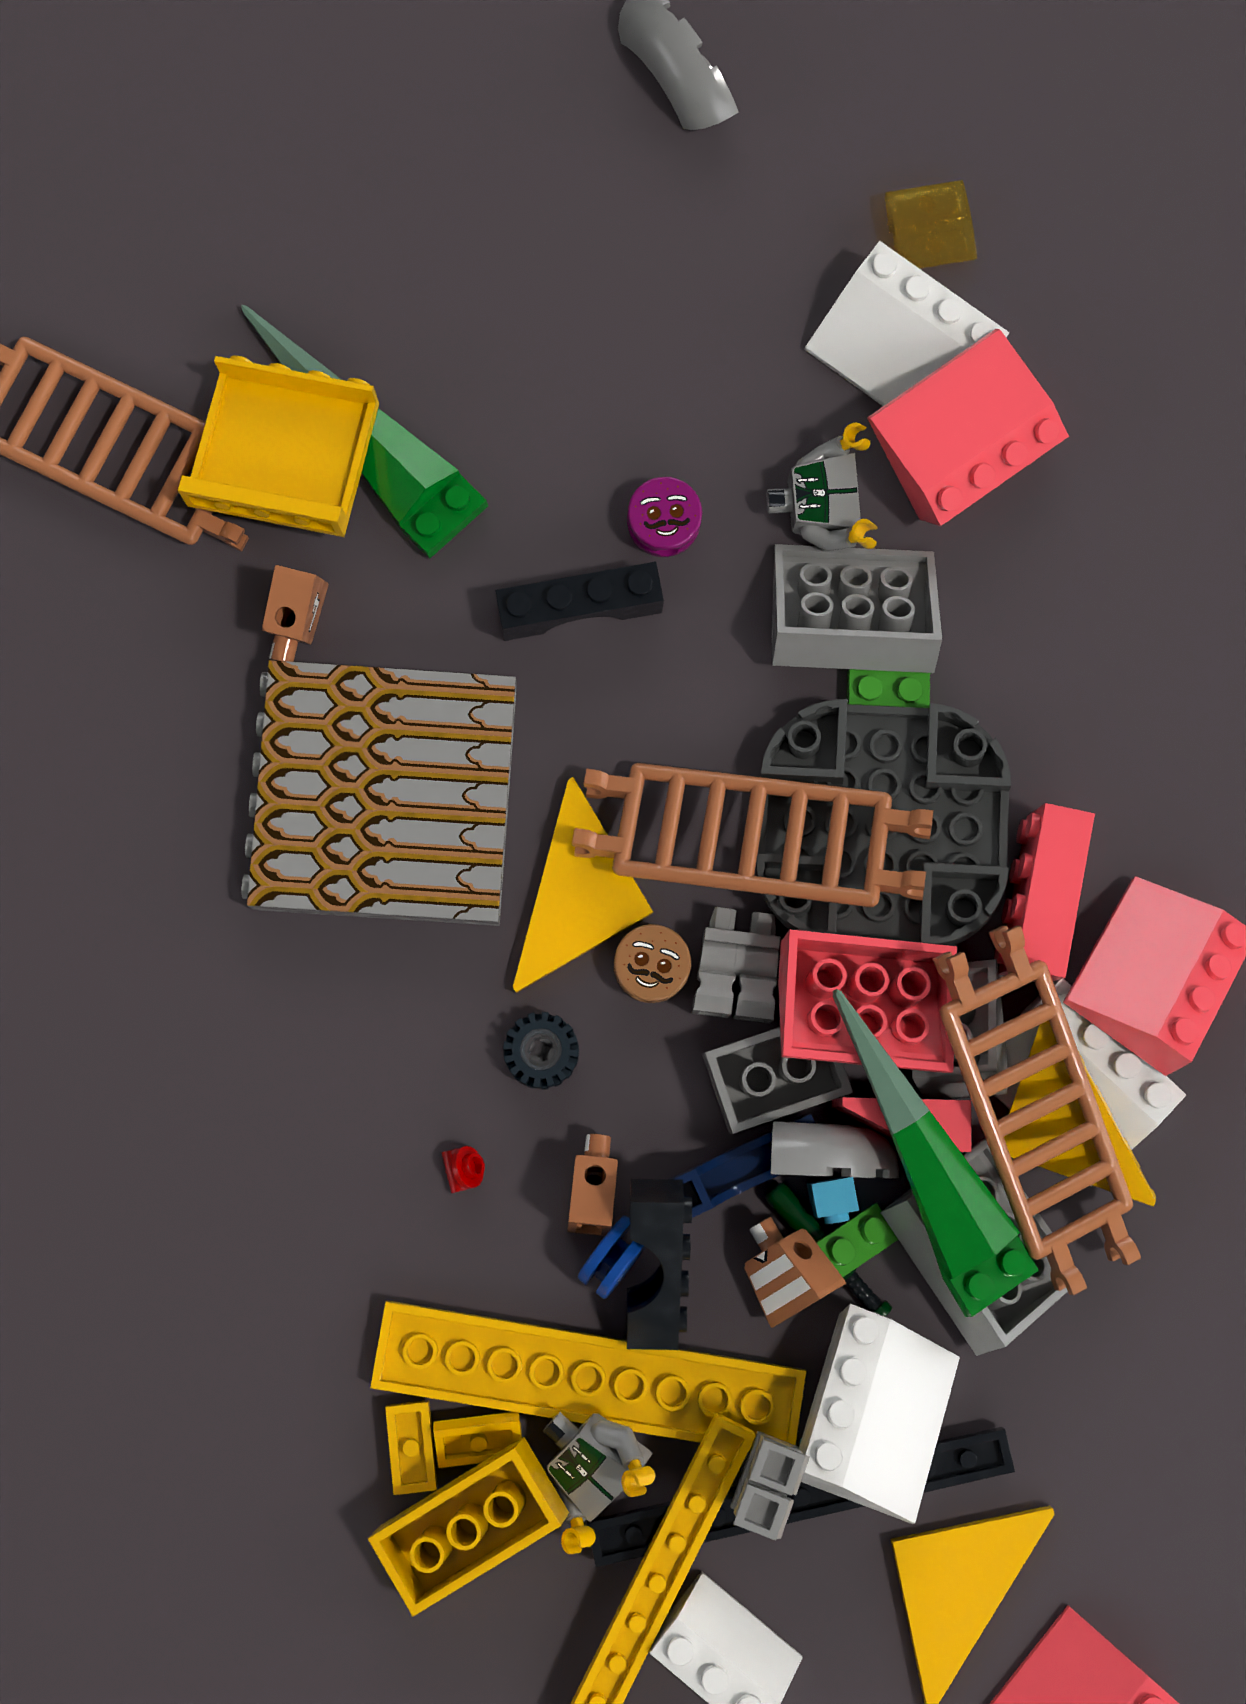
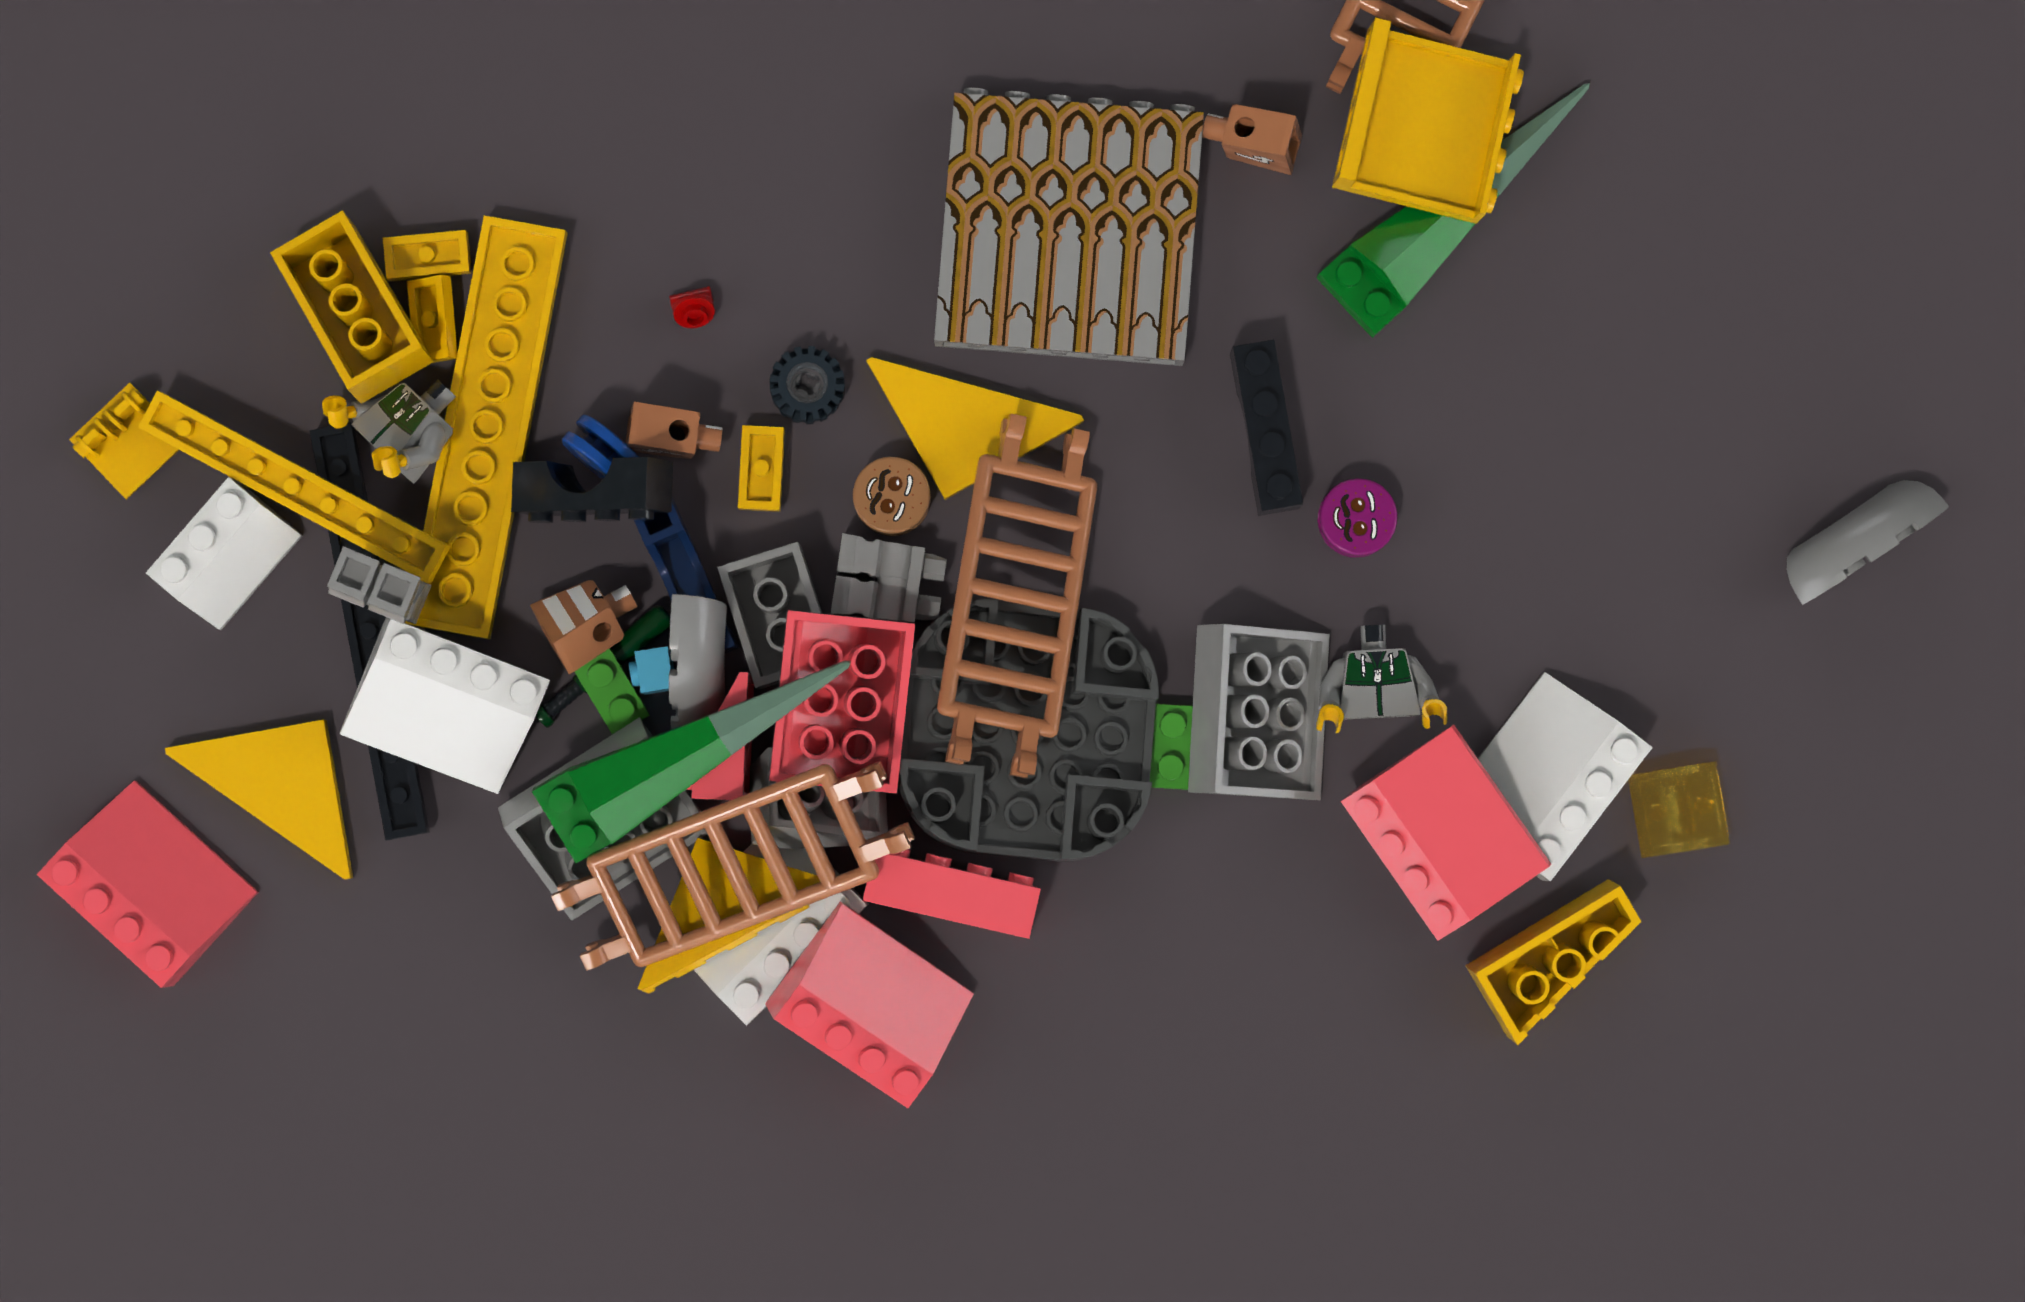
camera: 100 degrees right, 5 degrees up
(626, 1095) = (761, 468): none -> yellow plate
(1075, 335) = (1550, 957): none -> yellow wedge

